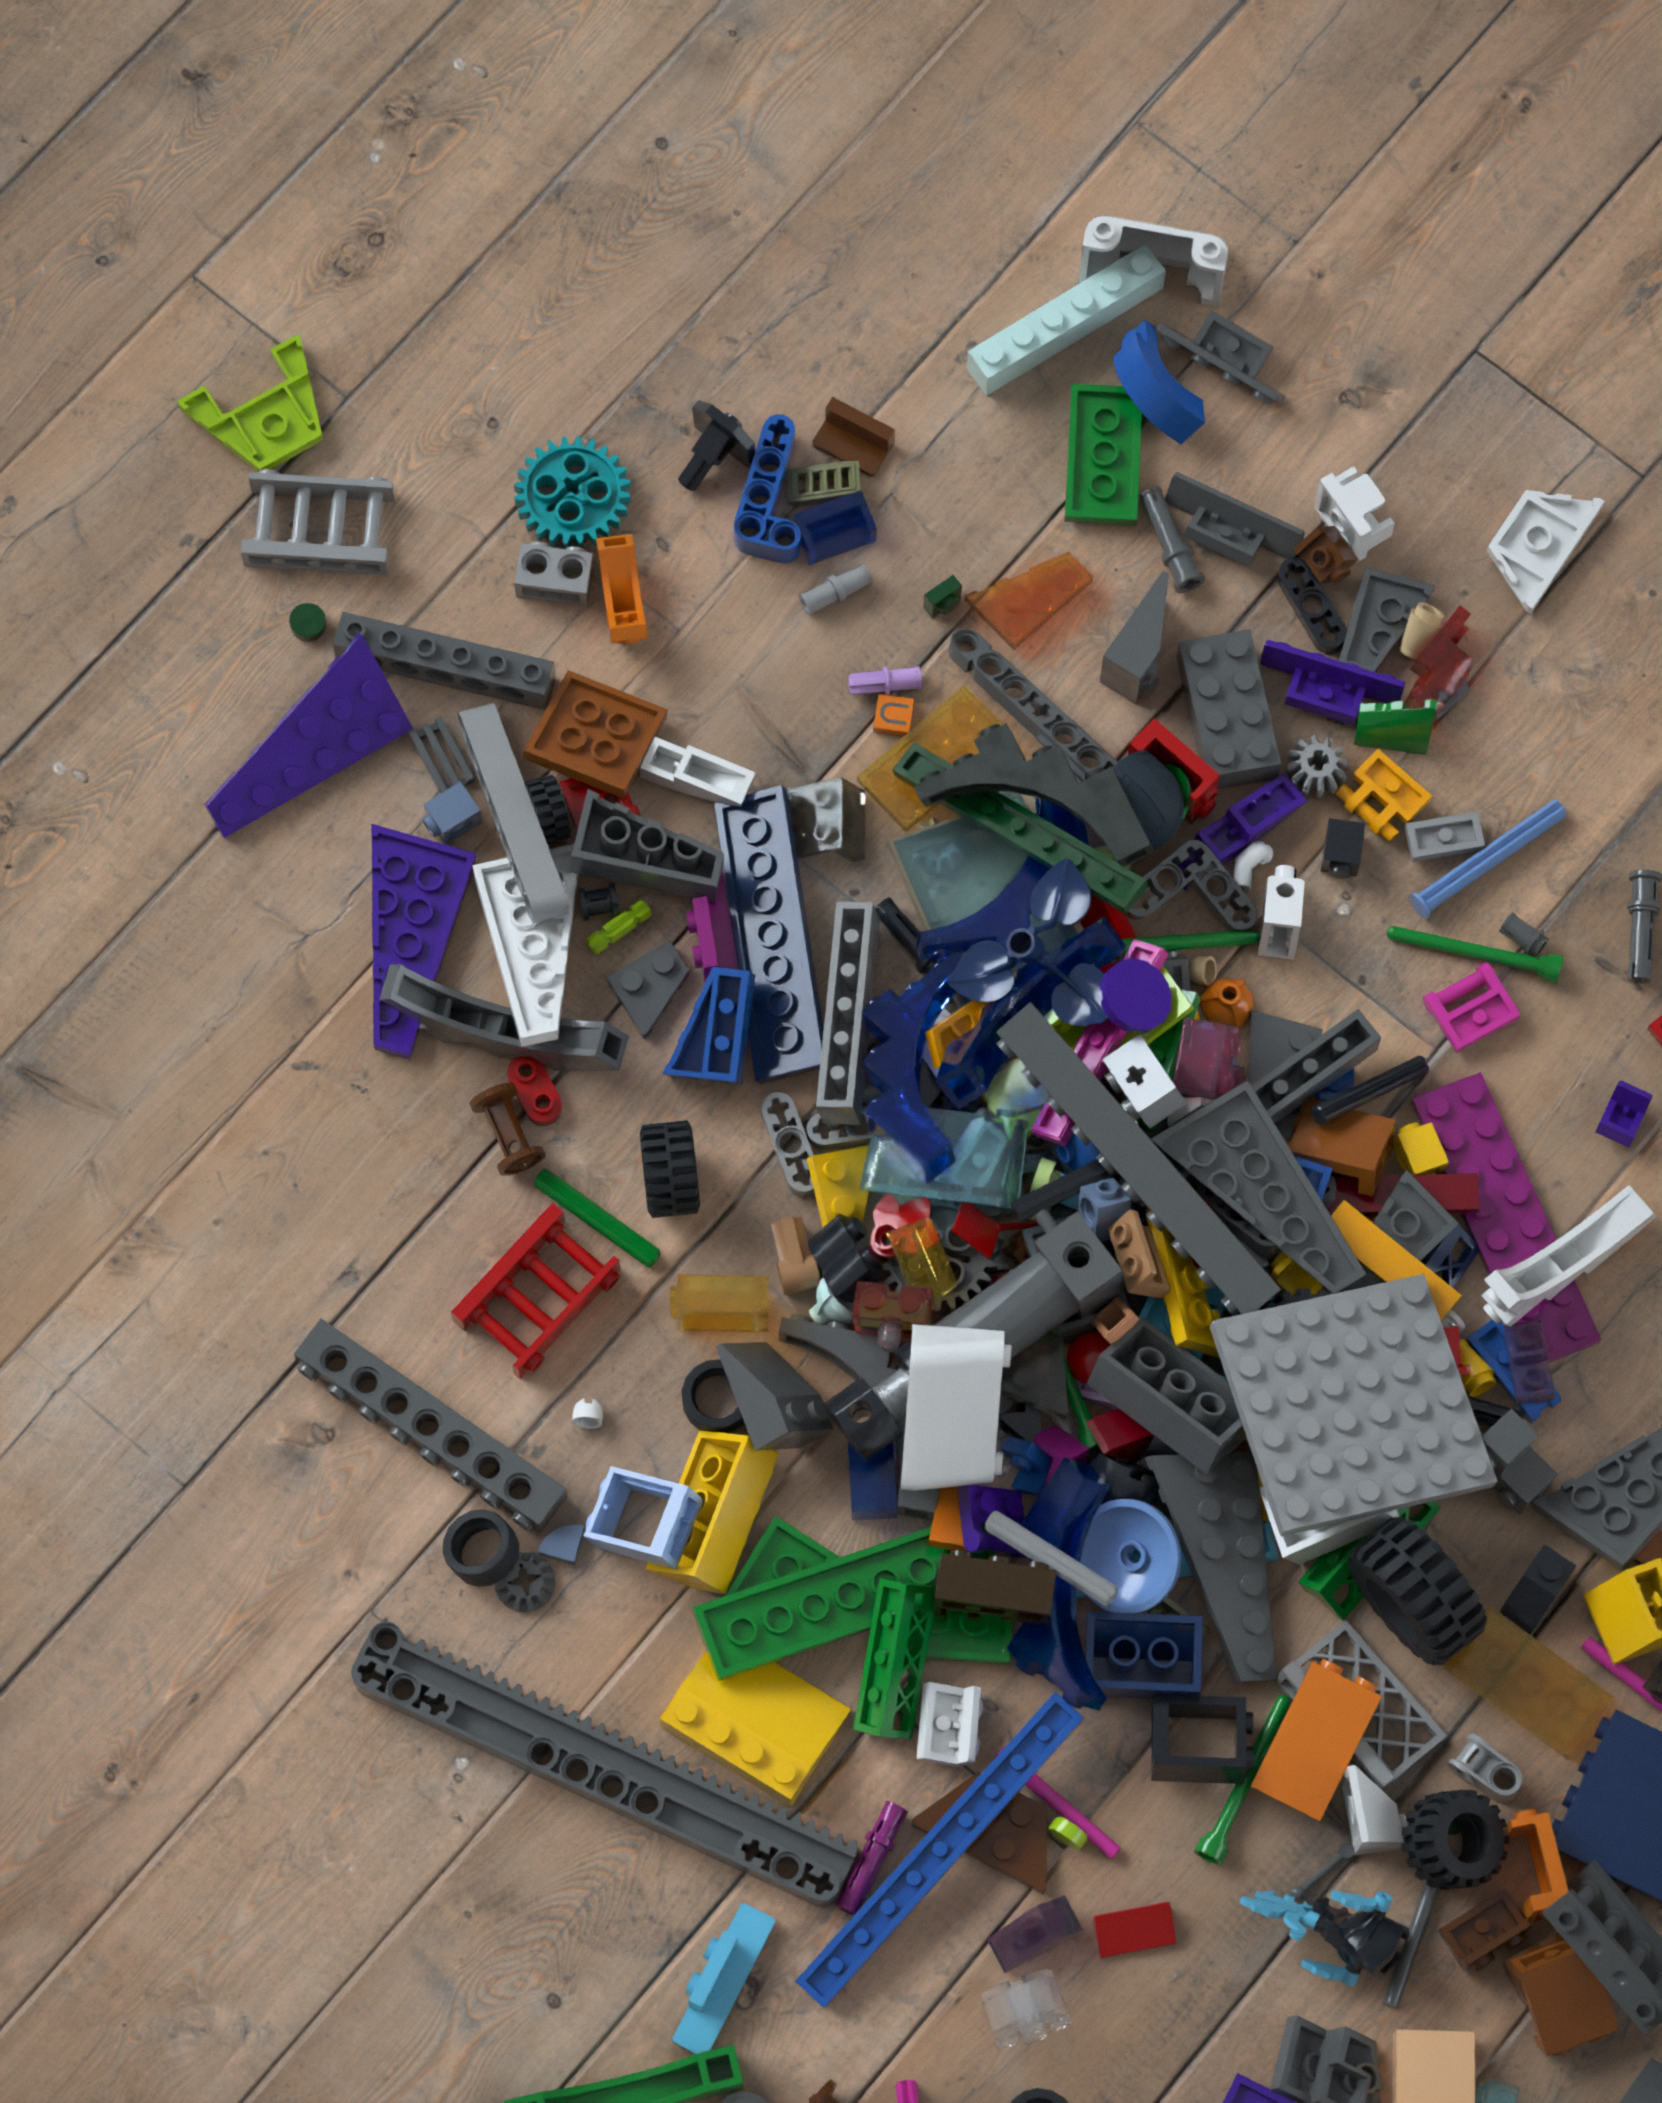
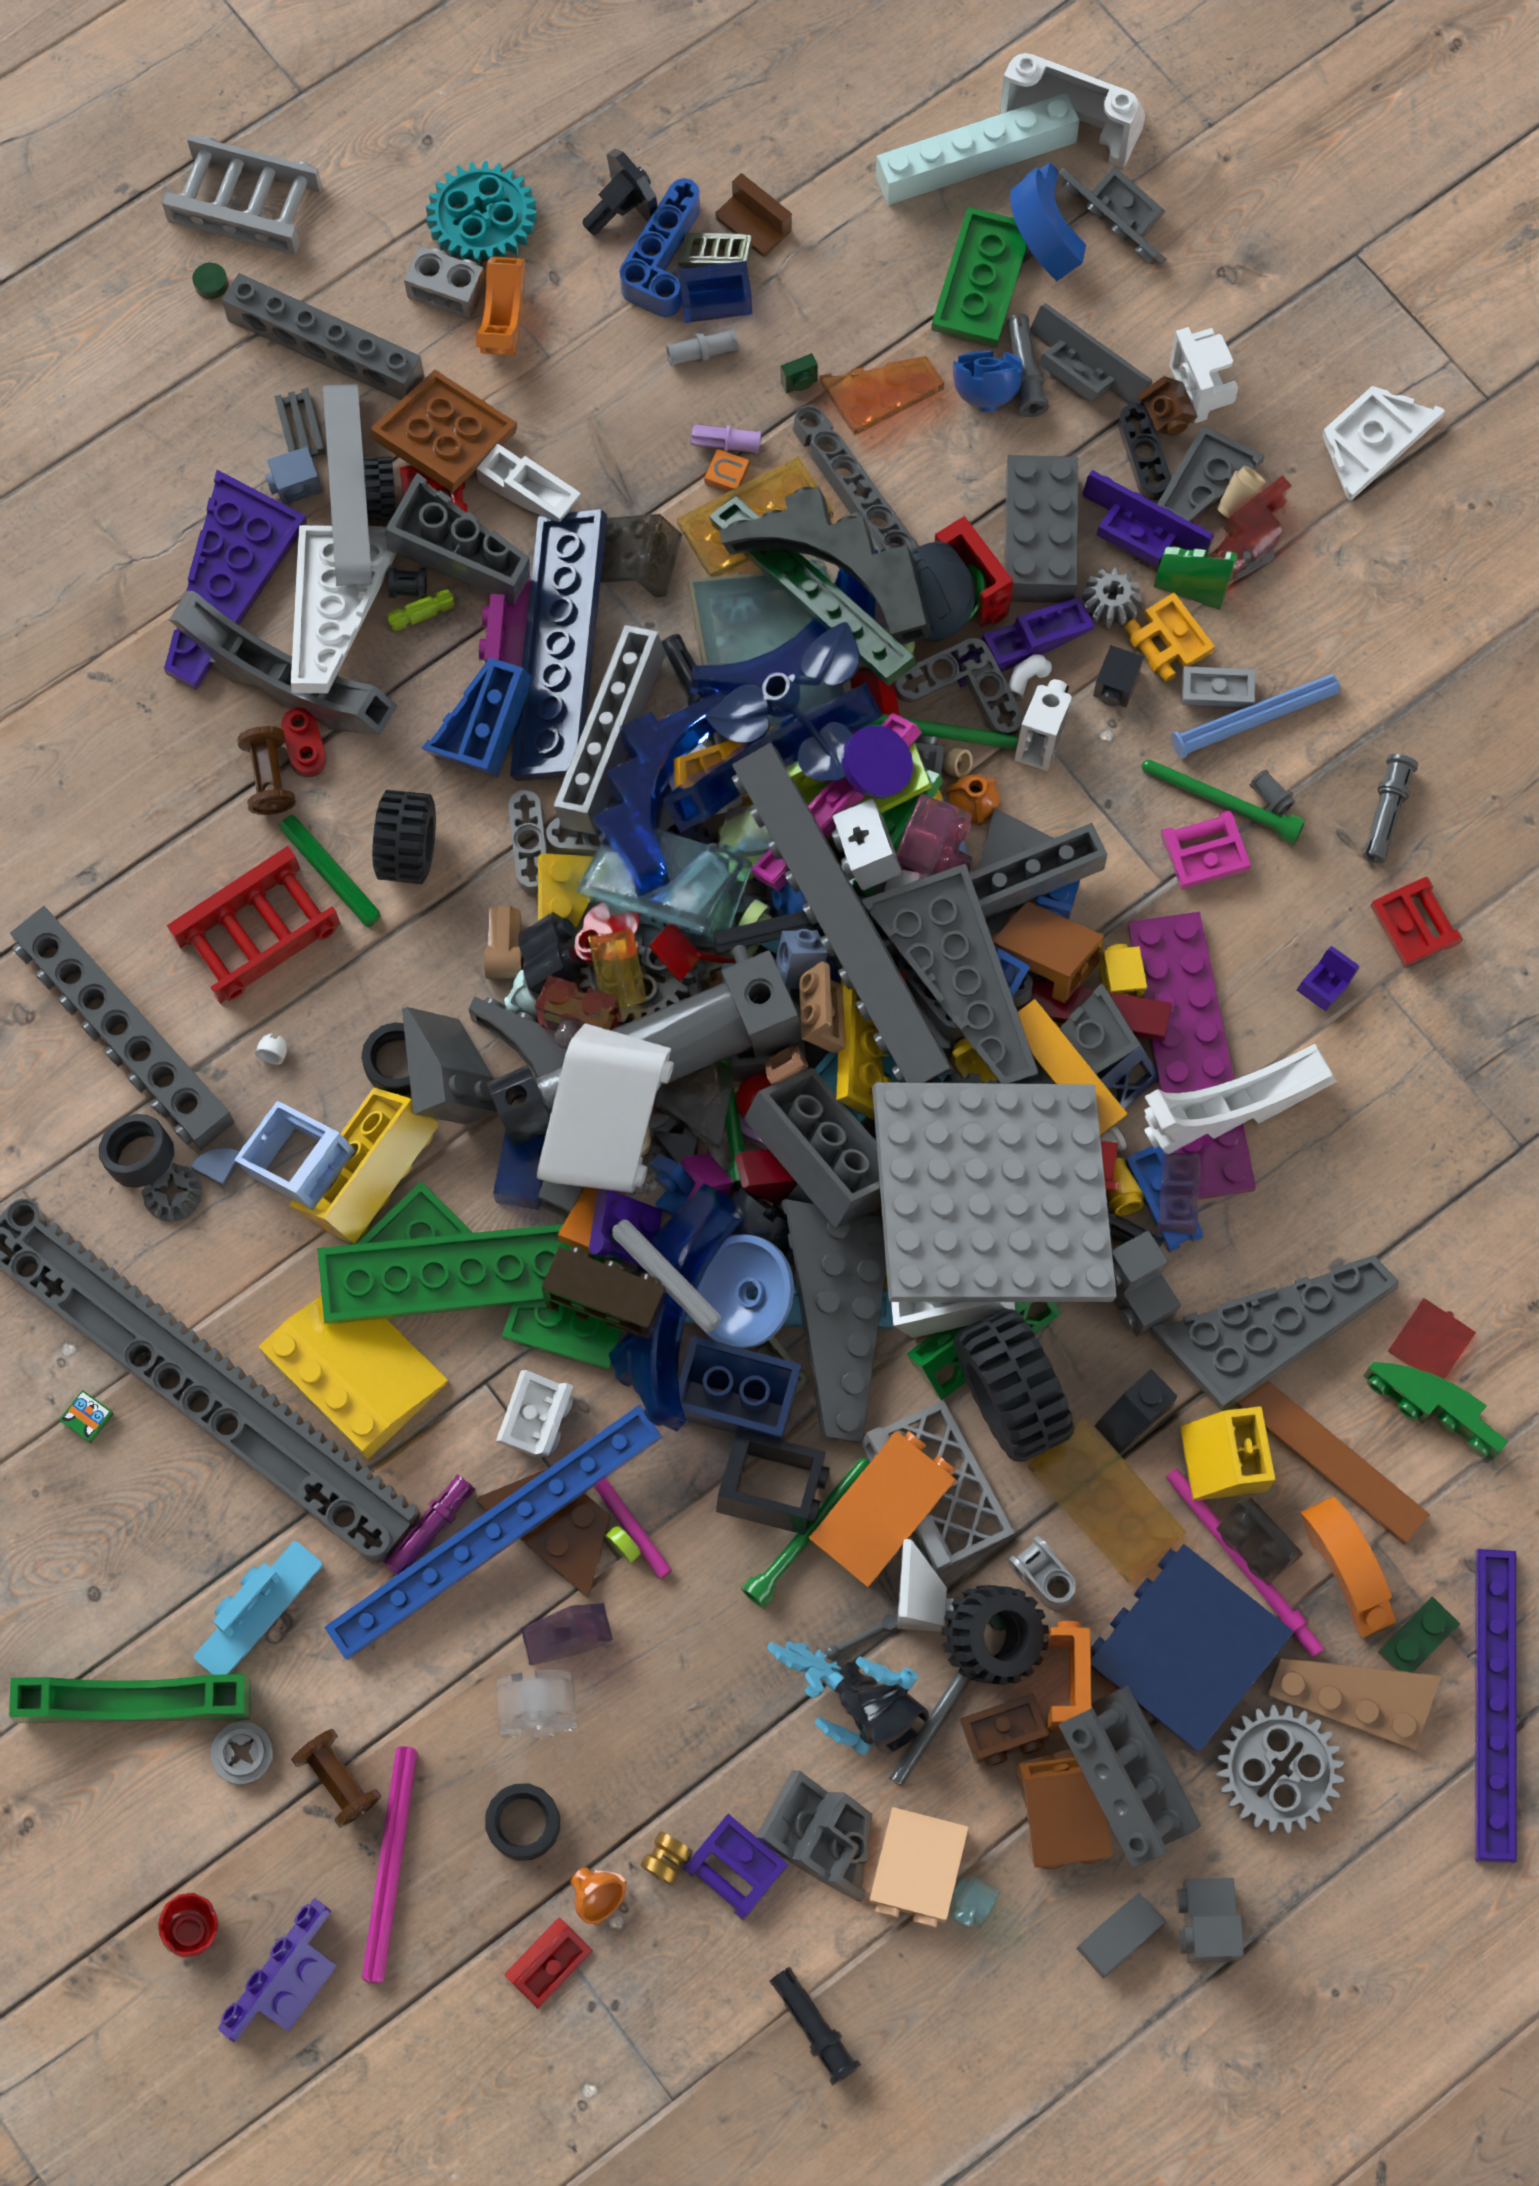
camera: 15 degrees right, 0 degrees up
(270, 425) = (223, 100): lime wing -> none
(325, 731) = (198, 377): dark purple wing -> none
(499, 1826) = (86, 1416): none -> tile
(648, 985) = (435, 668): dark grey wing -> none
(721, 1303) = (421, 971): clear yellow window -> none
(889, 1659) = (492, 1339): green fence -> none
(1133, 656) = (965, 454): dark grey slope -> none
(1134, 1930) = (664, 1652): red slope -> none
(1136, 563) = (987, 380): none -> blue cylinder
(1369, 1090) = (1087, 904): black axle -> none

